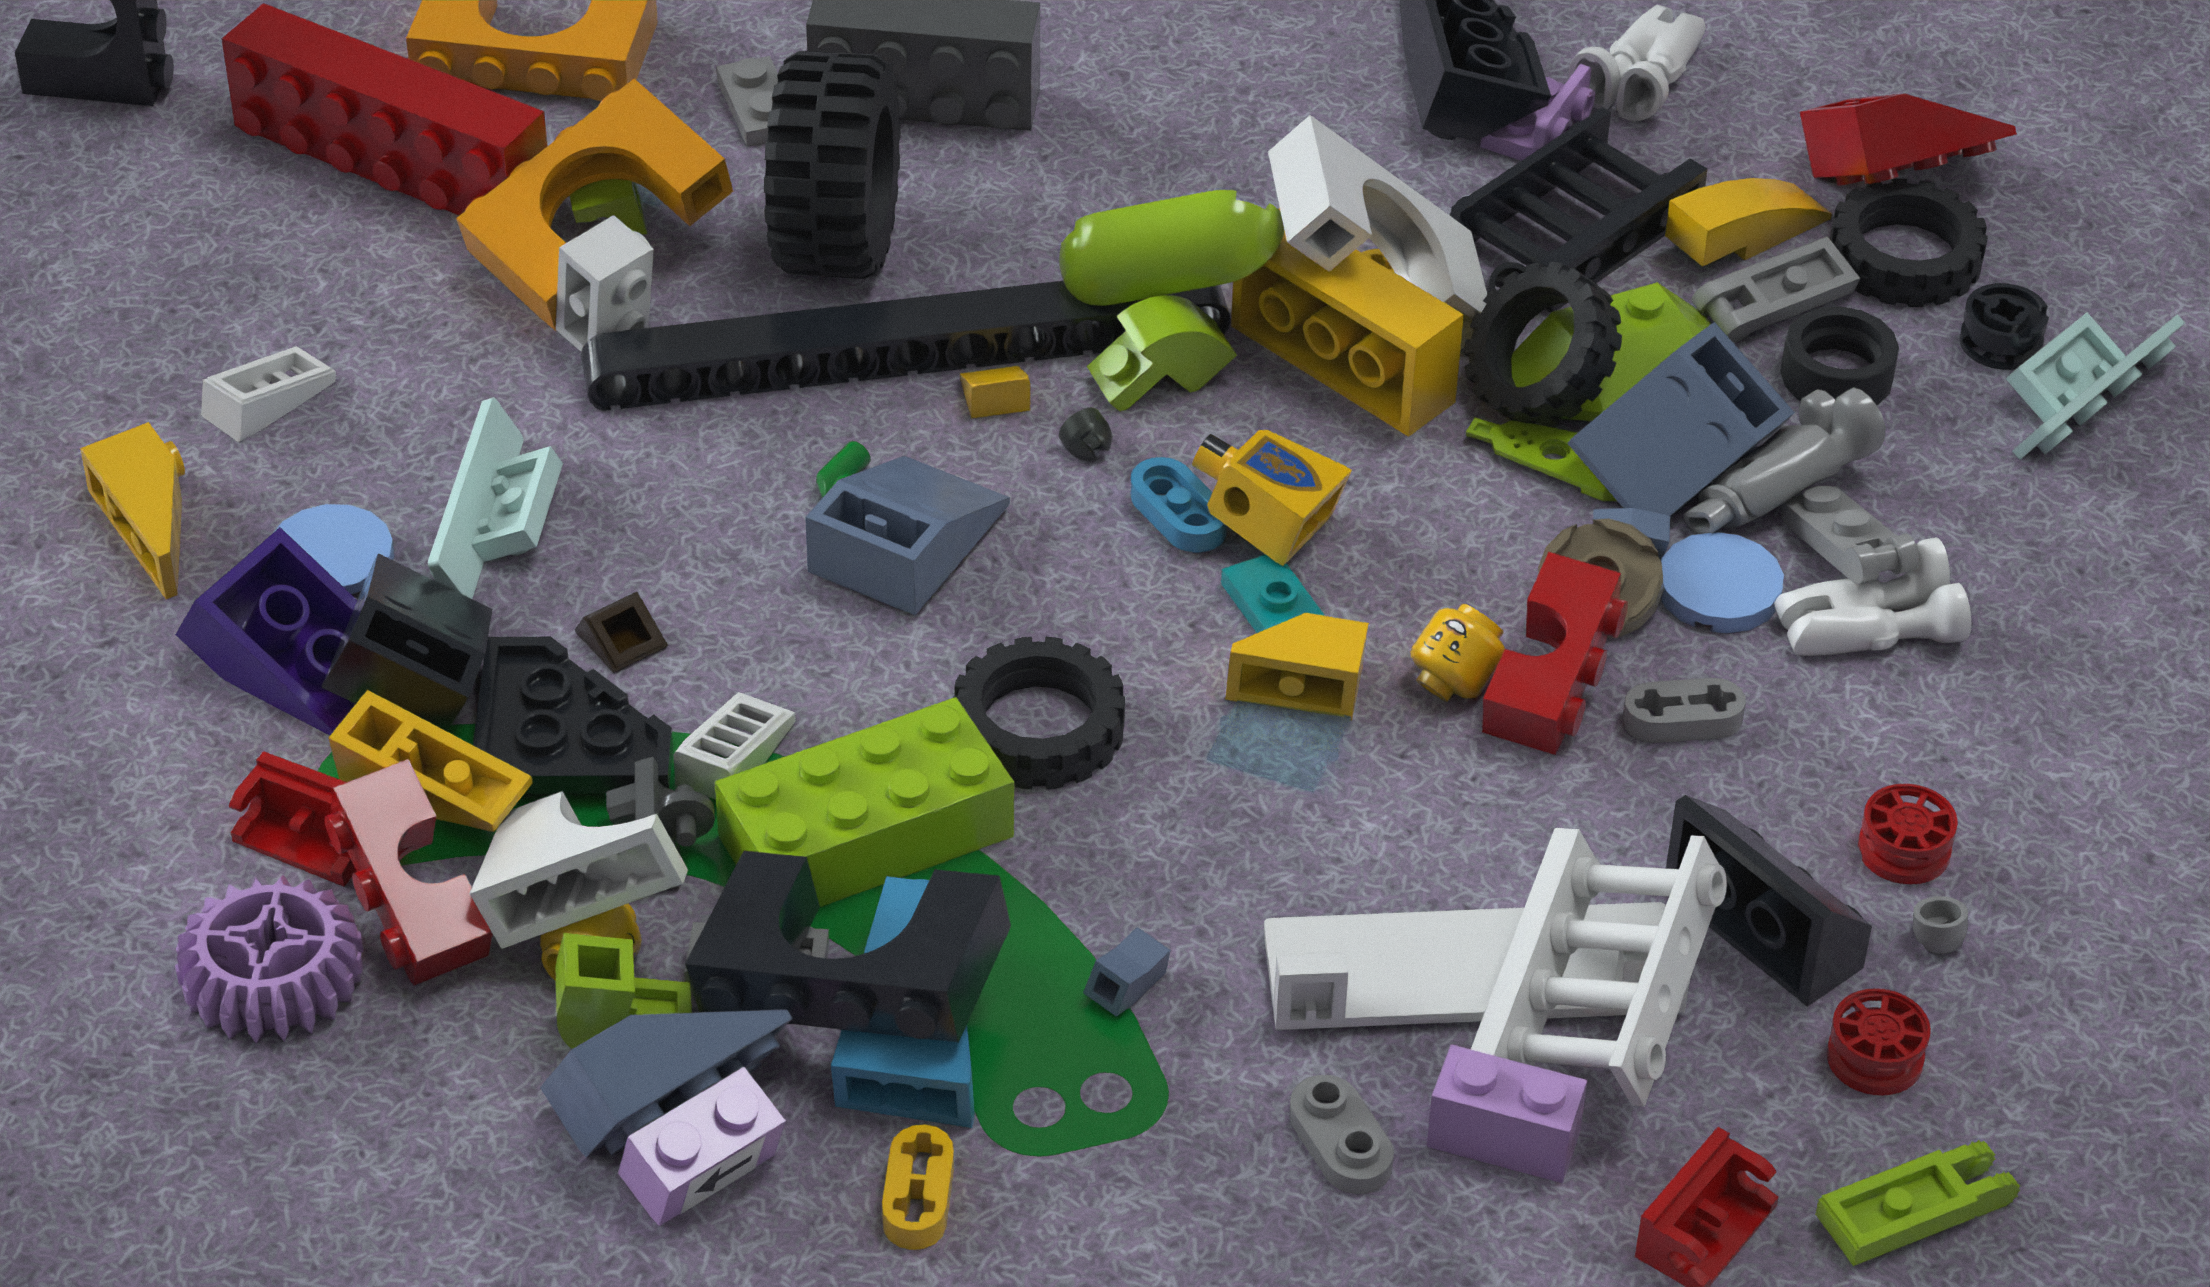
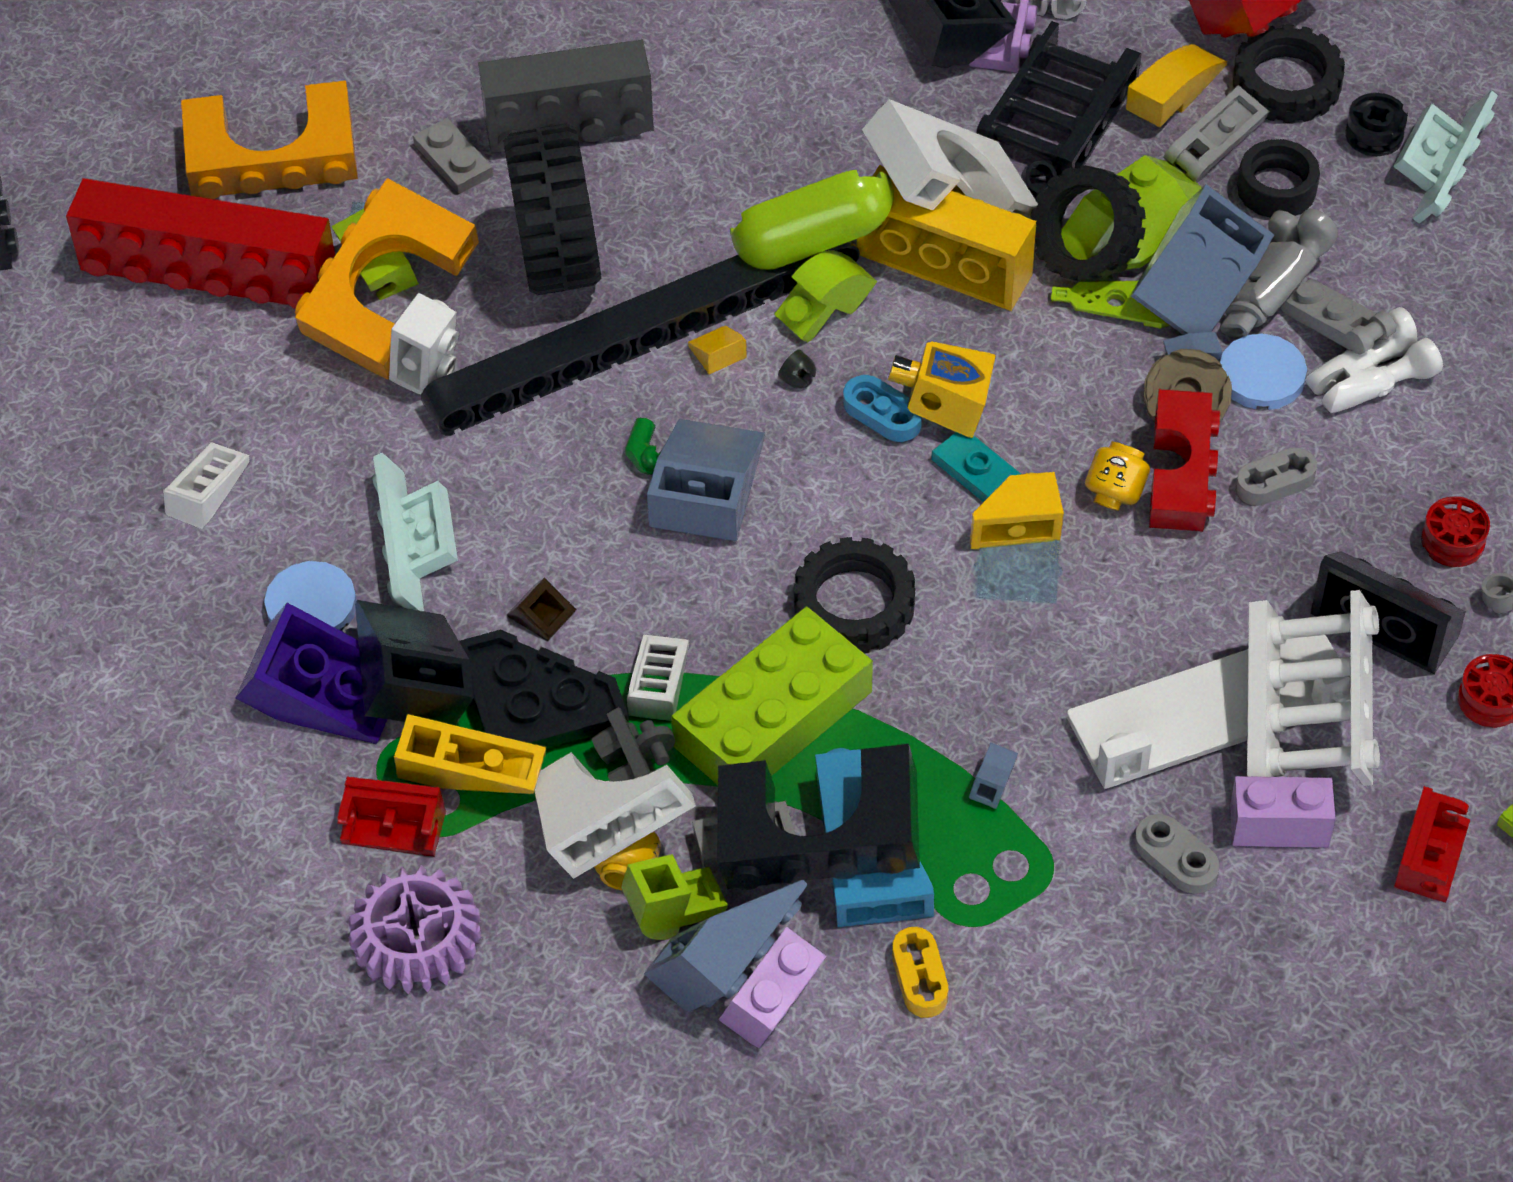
camera: 15 degrees left, 10 degrees up
(140, 493) = (153, 588): yellow slope -> none
(425, 924) = (510, 875): arch -> none

